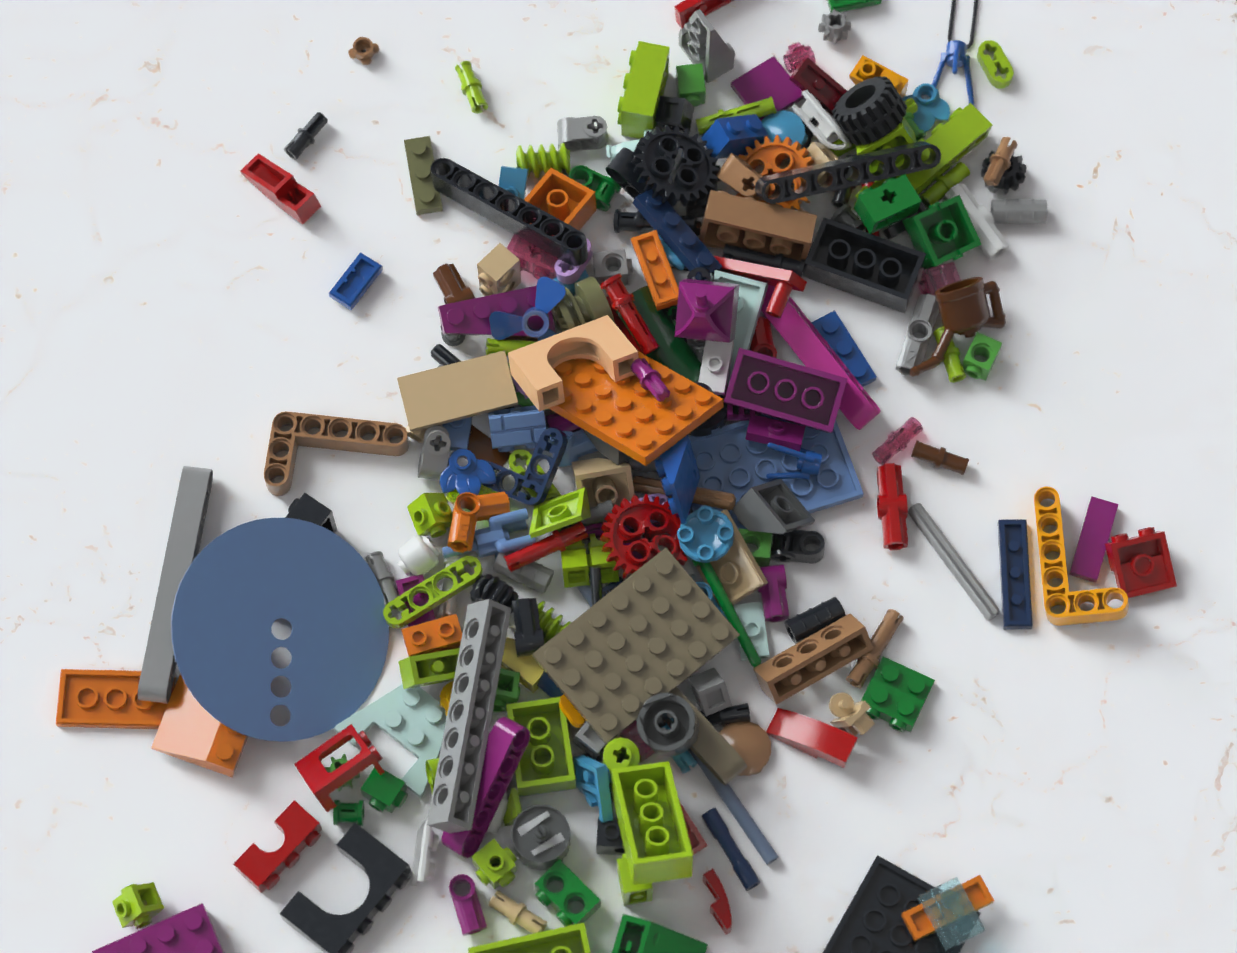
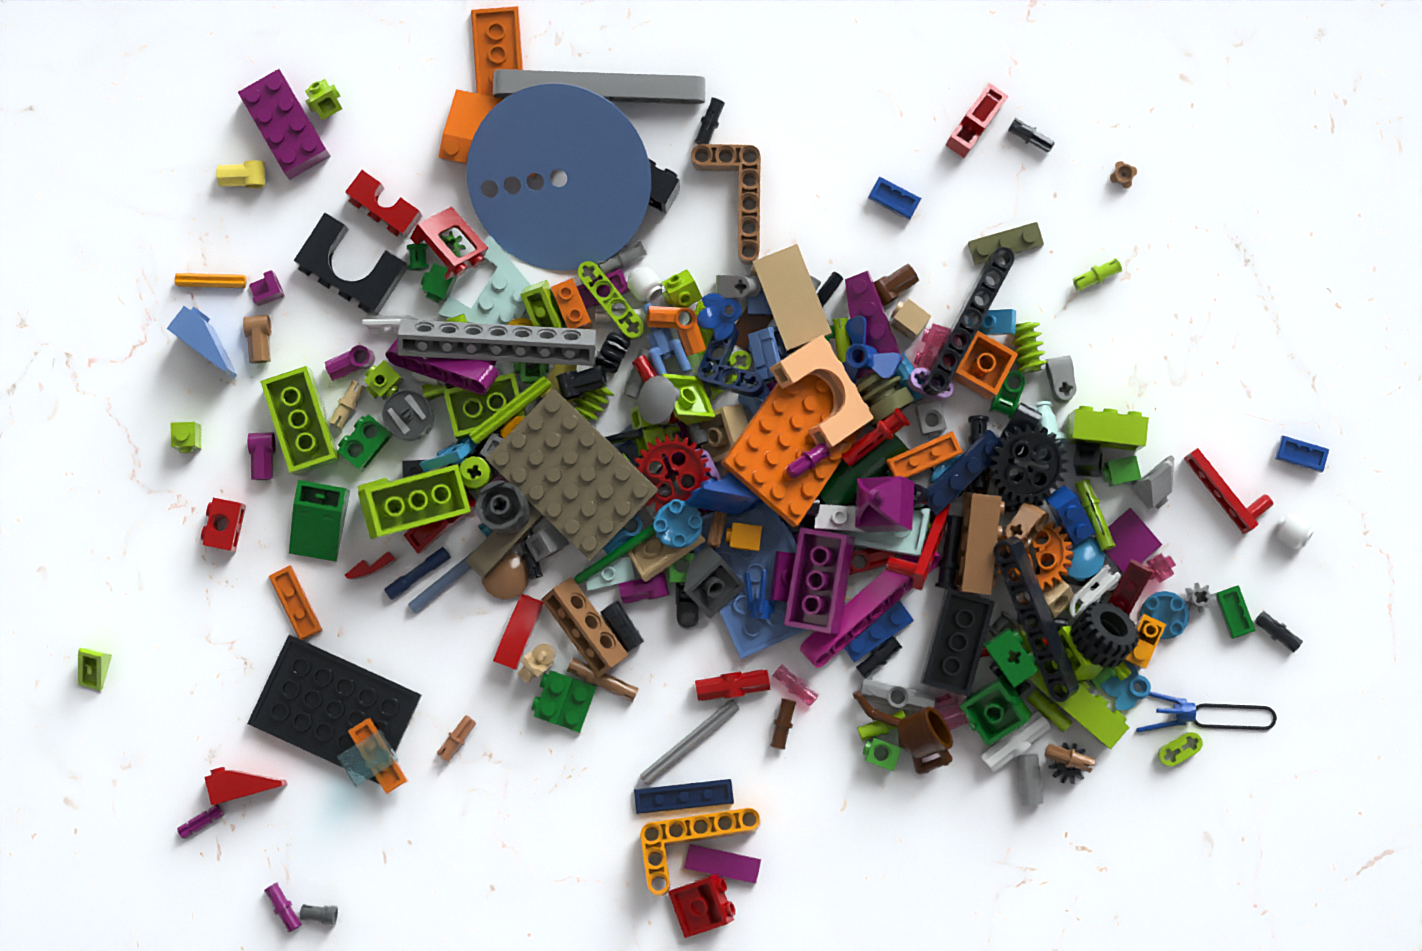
camera: 85 degrees right, 15 degrees up
(237, 467) = (715, 108): none -> black pin
(551, 710) = (510, 410): none -> lime axle
(560, 539) = (657, 400): none -> light grey dish
(726, 470) = (744, 537): none -> light orange brick
(844, 56) = (1169, 609): none -> dark azure dish
(872, 350) = (879, 657): none -> black pin
(931, 820) = (456, 738): none -> nougat axle

